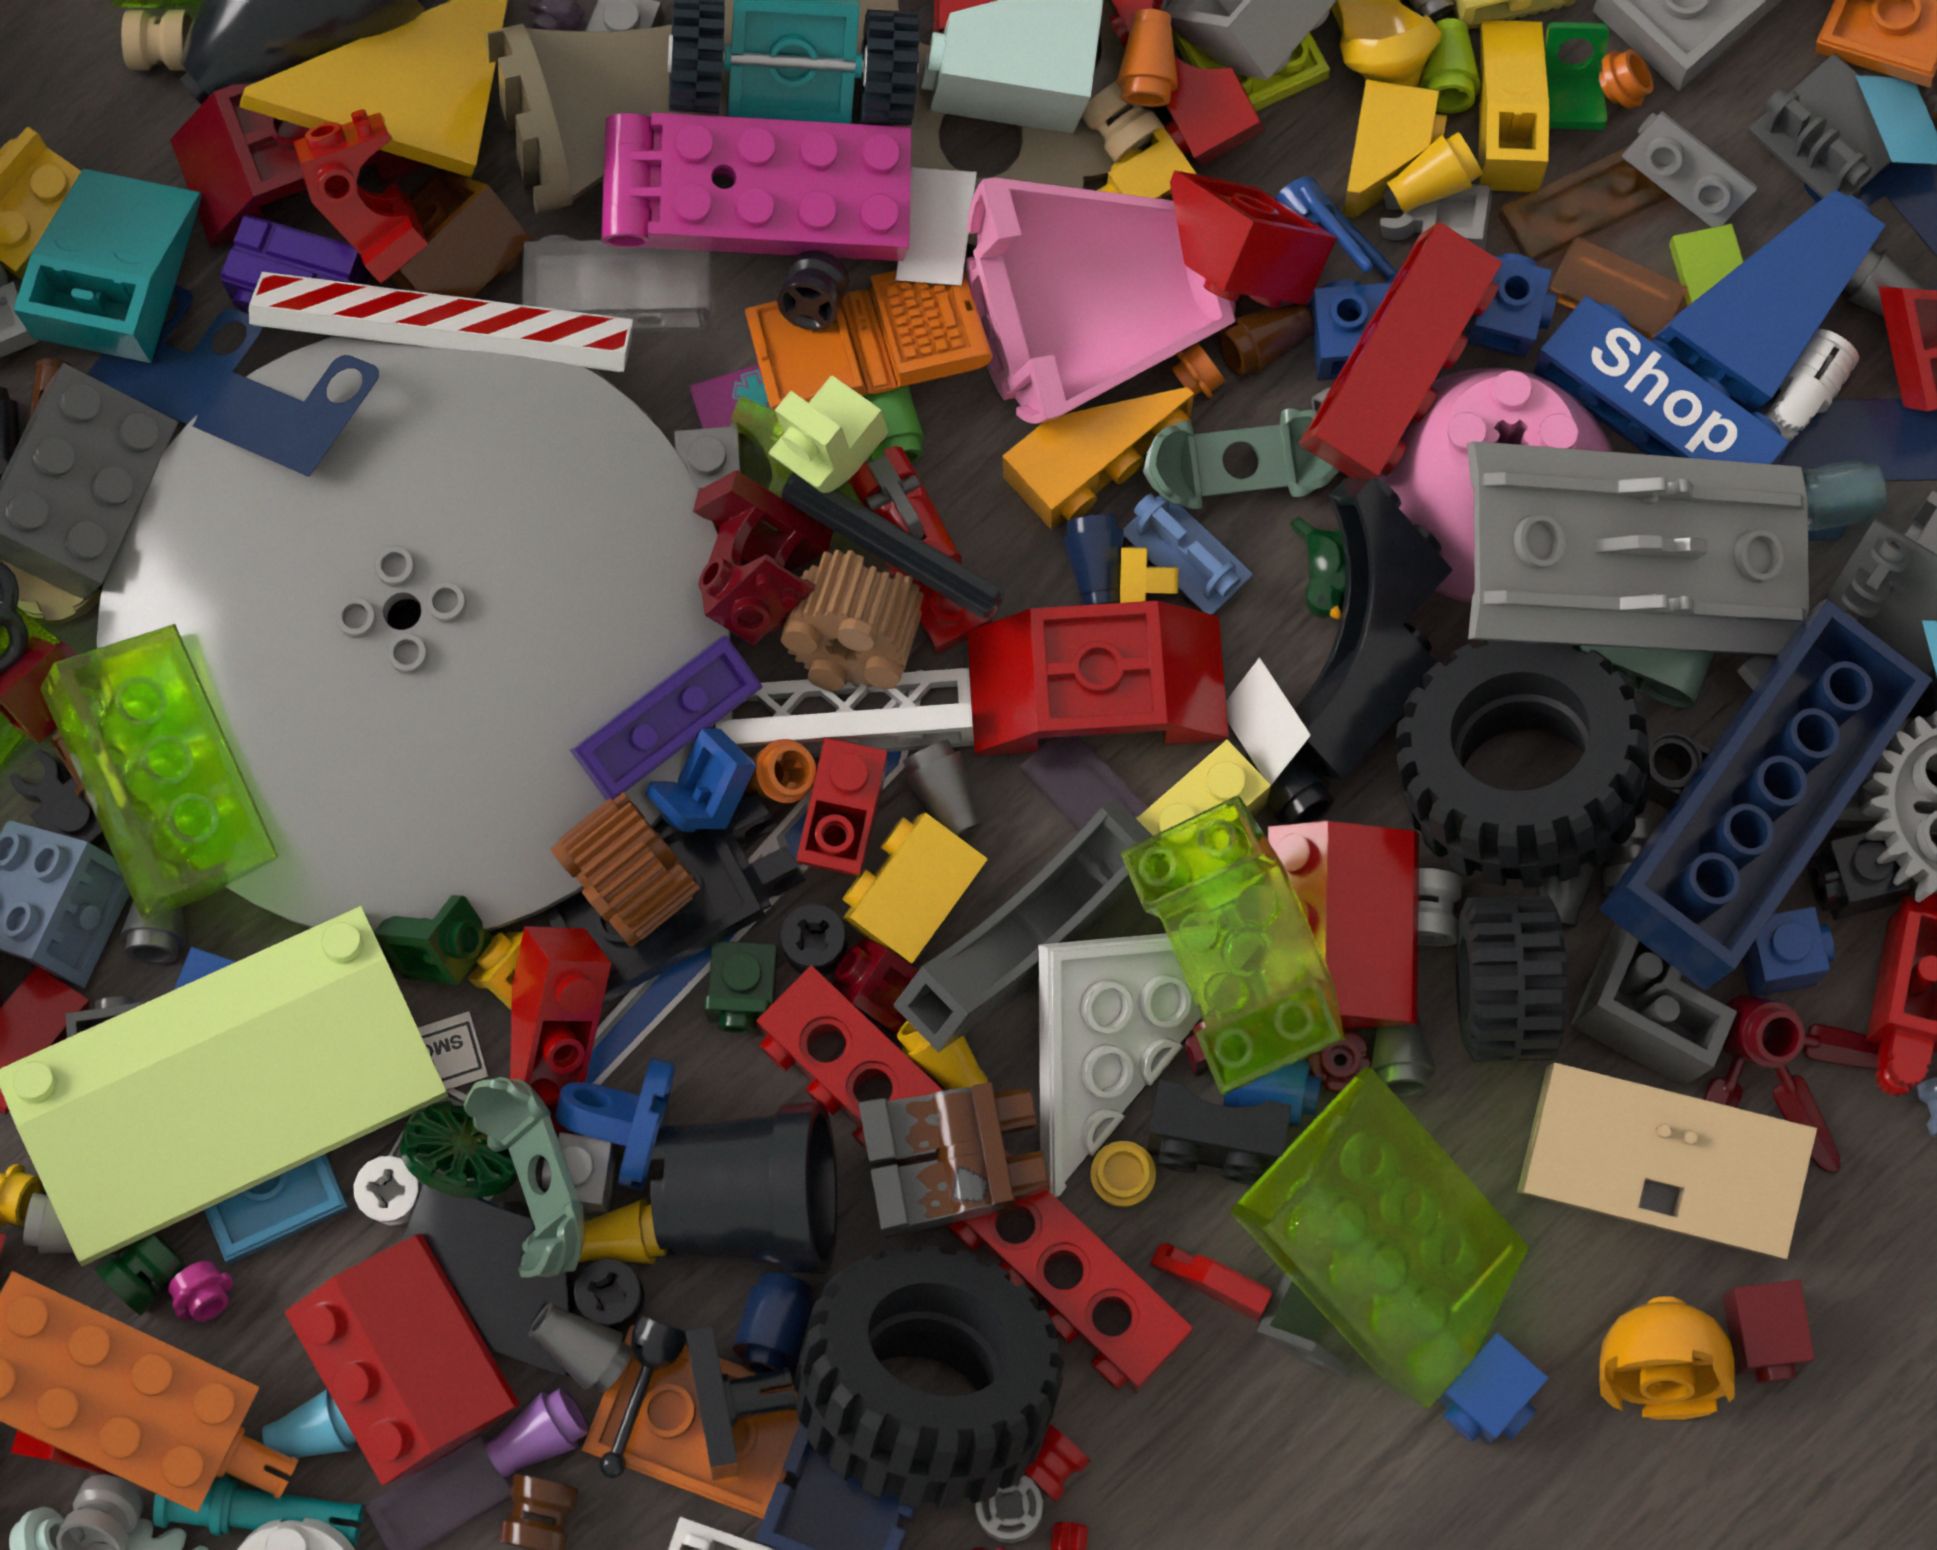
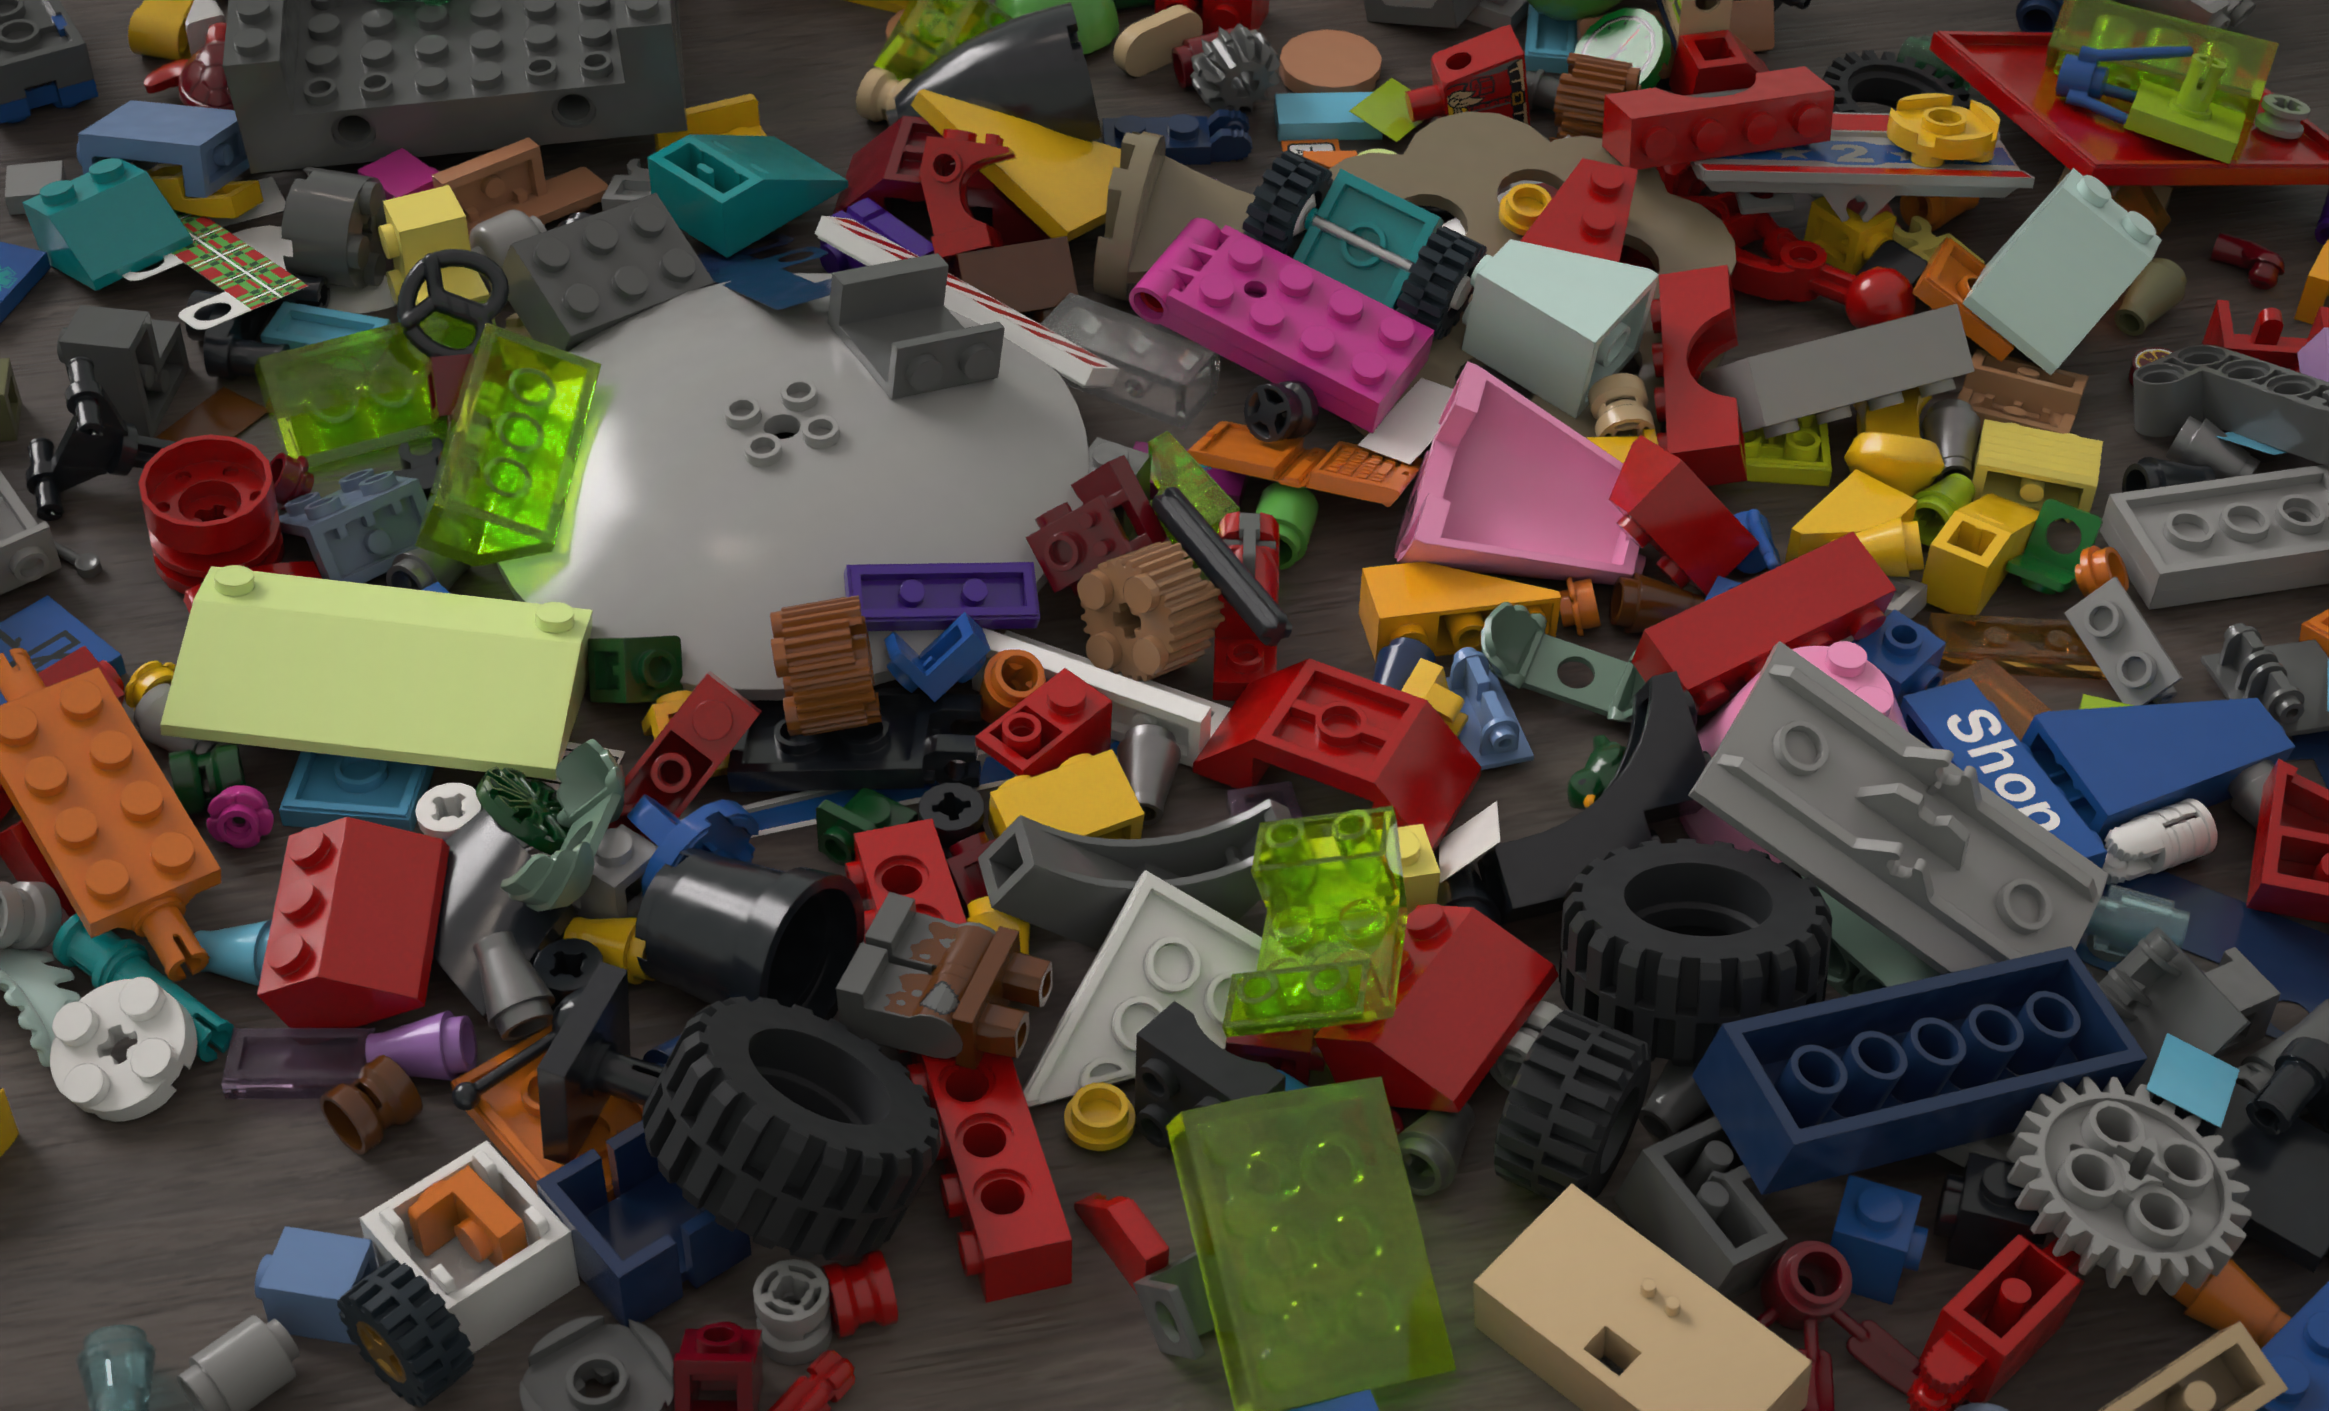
camera: 25 degrees right, 30 degrees down
(448, 428) = (904, 333): none -> dark grey panel
(829, 435) = (1215, 465): yellowish green brick -> none
(1148, 60) = (1663, 363): orange cone -> none

